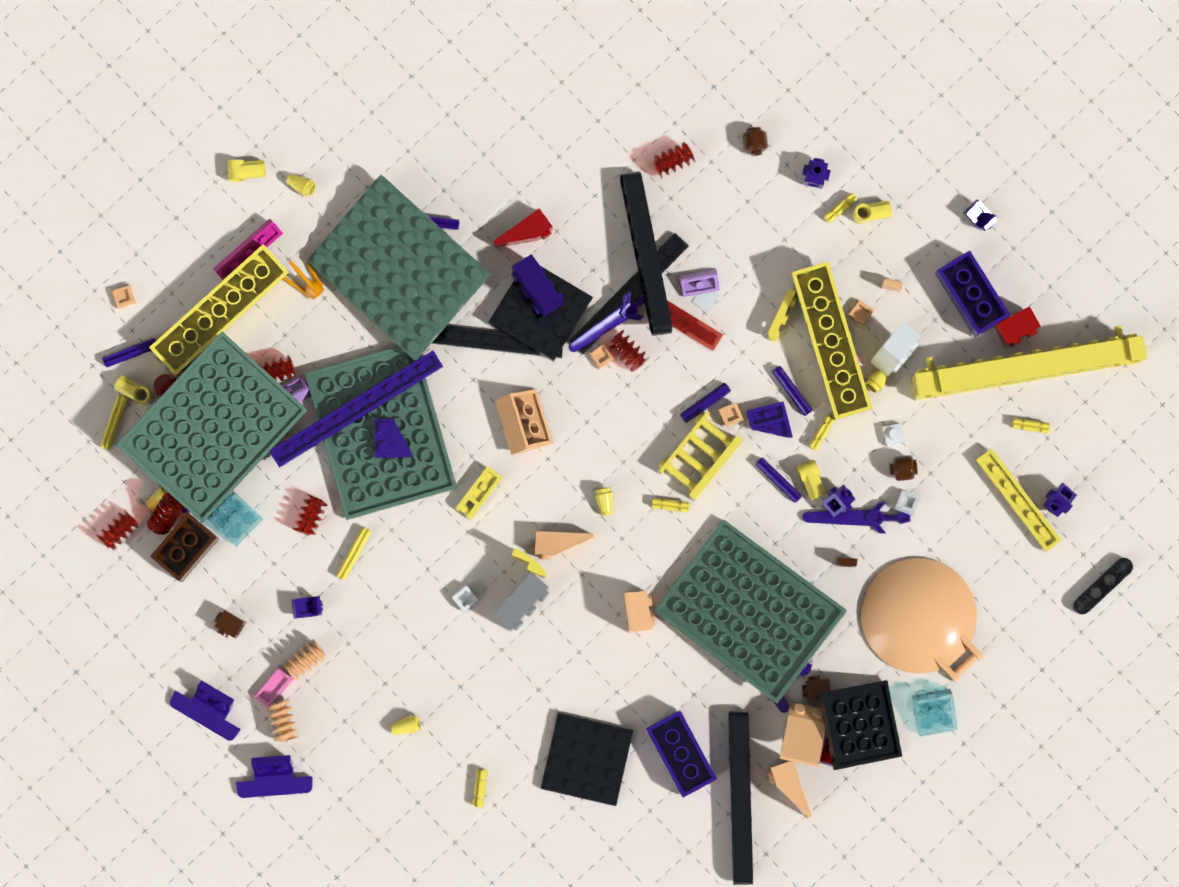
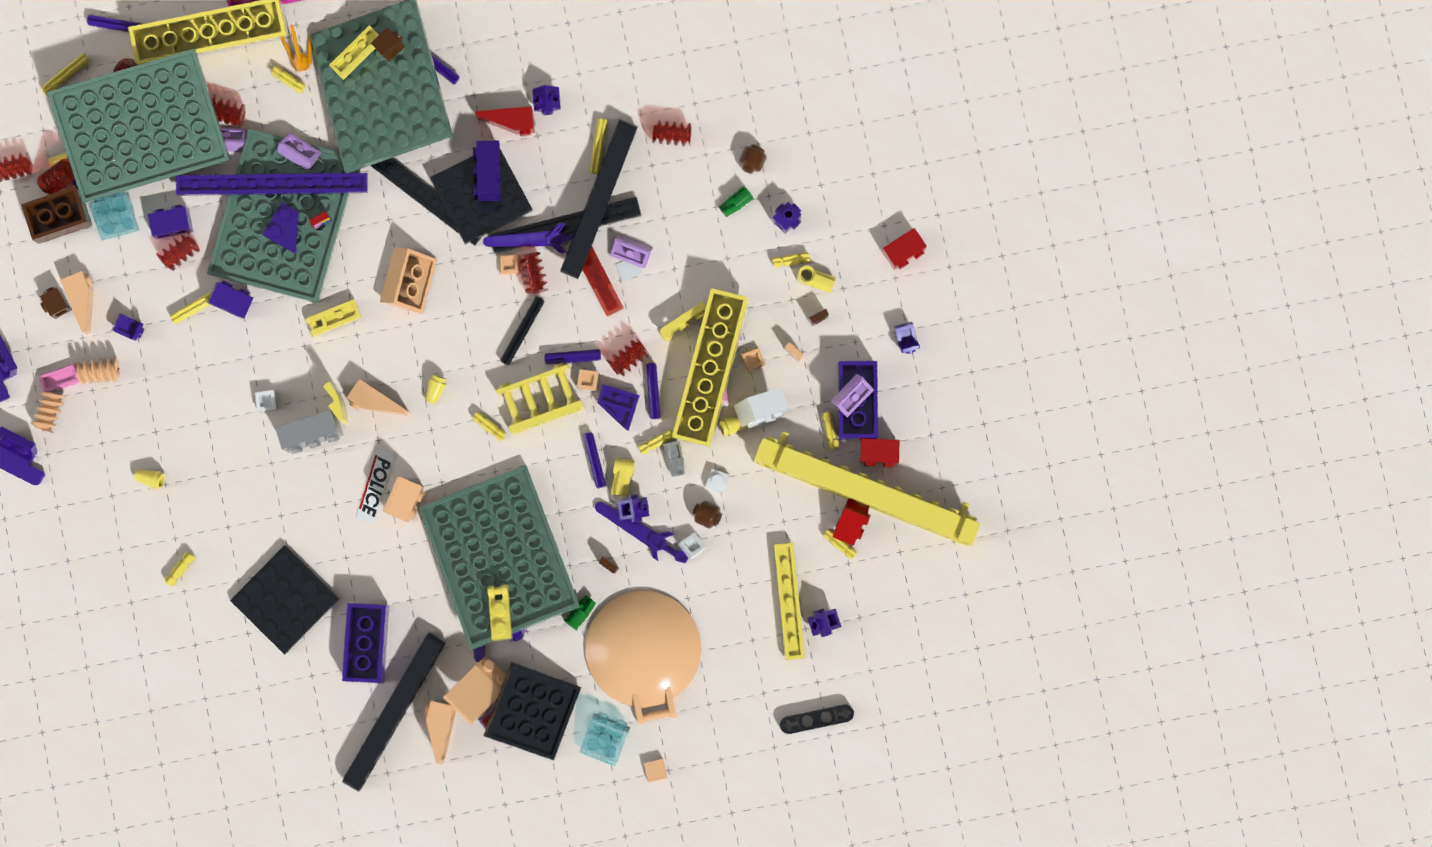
camera: 30 degrees right, 0 degrees up
(133, 390) = (97, 57): light yellow piece -> none
(248, 605) = (80, 295): none -> light nougat slope
(286, 494) = (170, 222): none -> dark purple brick
(311, 310) = (288, 79): none -> light yellow axle
(361, 251) = (354, 53): none -> light yellow plate
(361, 367) = (298, 151): none -> lavender slope
(381, 530) = (229, 299): none -> dark purple brick
(386, 227) = (388, 44): none -> reddish brown brick
(418, 414) = (320, 220): none -> red tile
(547, 195) = (546, 99): none -> dark purple brick
(603, 615) = (375, 485): none -> sticker
(615, 208) = (598, 146): none -> light yellow axle
(648, 409) = (522, 330): none -> black axle
(753, 375) = (627, 358): none -> clear red piece
(763, 186) = (736, 201): none -> green hinge
(783, 657) = (500, 613): none -> light yellow plate
(814, 686) = (516, 655): reddish brown brick -> none
(846, 437) = (674, 458): none -> light grey hinge
(846, 624) = (578, 616): none -> green hinge
(895, 242) = (818, 317): none -> reddish brown tile
(931, 141) = (904, 249): none -> red brick
(964, 334) = (830, 430): none -> light yellow axle
(966, 291) = (852, 395): none -> lavender slope
(993, 712) = (655, 770): none -> light nougat tile
(1030, 400) = (851, 521): none -> red brick

